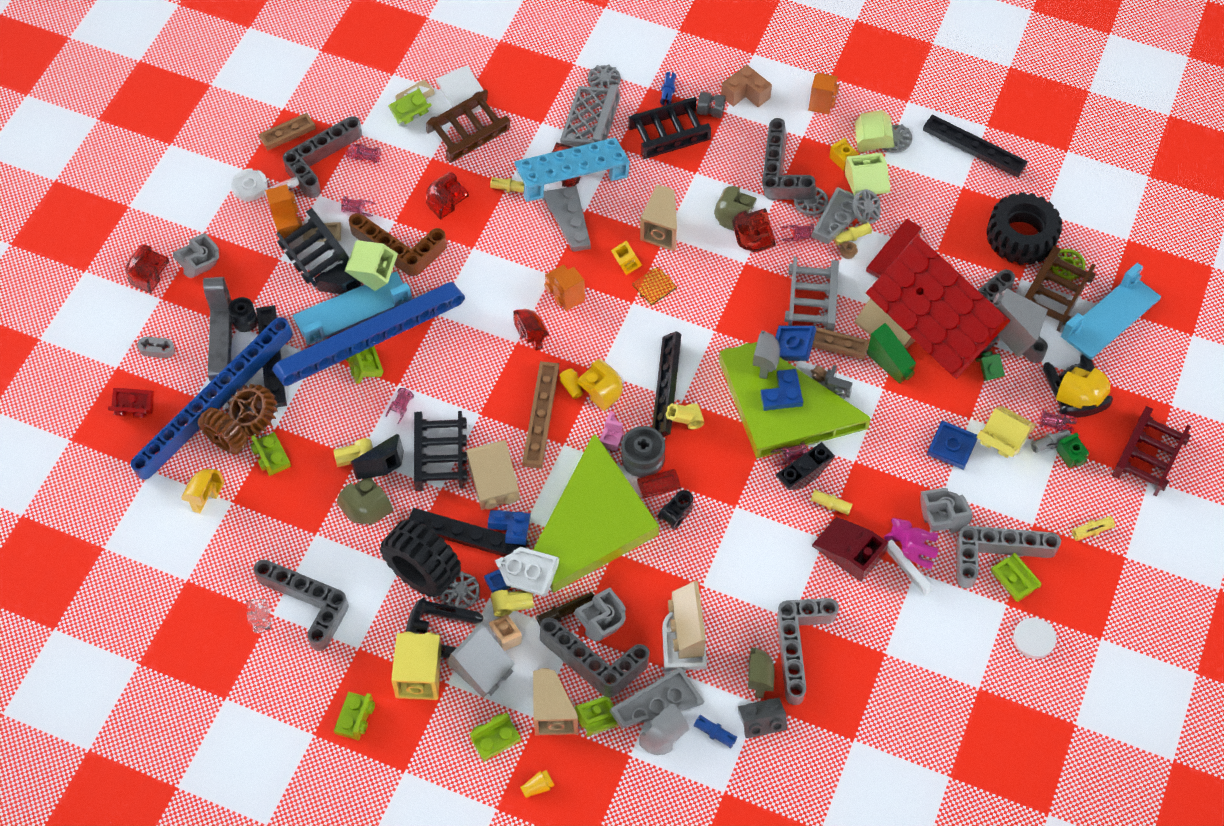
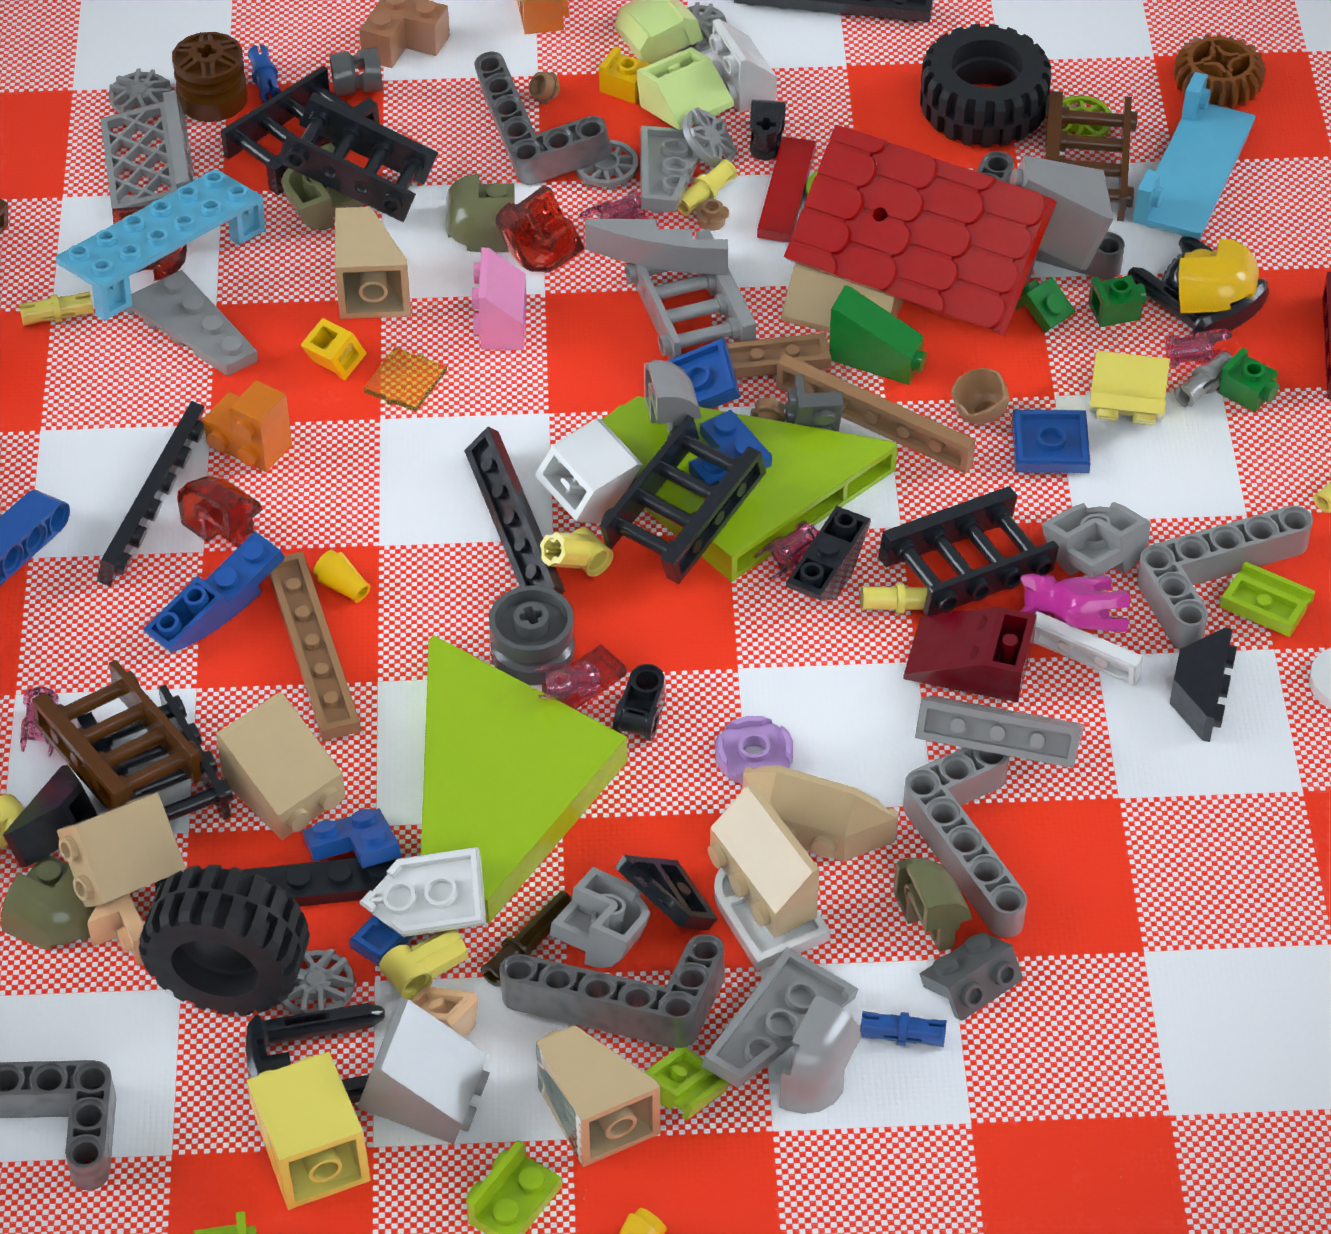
camera: 25 degrees left, 10 degrees down
(386, 519) = (118, 920): none -> light nougat slope
(398, 491) = (120, 850): none -> tan panel
(409, 442) = (96, 767): none -> reddish brown fence
(500, 309) = (148, 502): none -> black plate
(507, 373) = (213, 602): none -> blue slope
(602, 384) = (400, 556): yellow brick -> none
(612, 433) = (457, 626): bright pink slope -> none
(638, 82) = (210, 76): none -> reddish brown wheel
(641, 613) = (669, 889): none -> black wing
(646, 484) = (565, 680): none -> clear pink piece
(661, 165) = (313, 200): none -> olive brick
(695, 146) = (366, 138): none -> black fence
(711, 375) = (589, 471): none -> white slope
(716, 263) = (500, 303): none -> bright pink slope
(717, 565) = (752, 732): none -> lavender tile
(729, 605) = (825, 814): none -> tan wedge
(750, 427) = (699, 527): none -> black fence
(799, 259) = (665, 249): none -> light grey slope
(801, 146) = (544, 86): none -> medium nougat plate
(833, 595) = (999, 731): none -> light grey fence
(875, 399) = (883, 416): none -> medium nougat plate
(882, 474) = (969, 522): none -> black fence
(900, 210) = (766, 128): none -> black piece
(904, 172) = (741, 66): none -> white slope
(928, 406) = (980, 396): none -> medium nougat hair
(957, 609) = (1201, 681): none -> black slope
(1029, 378) = (1116, 300): none -> green brick
(1159, 263) = (1232, 69): none -> dark orange gear

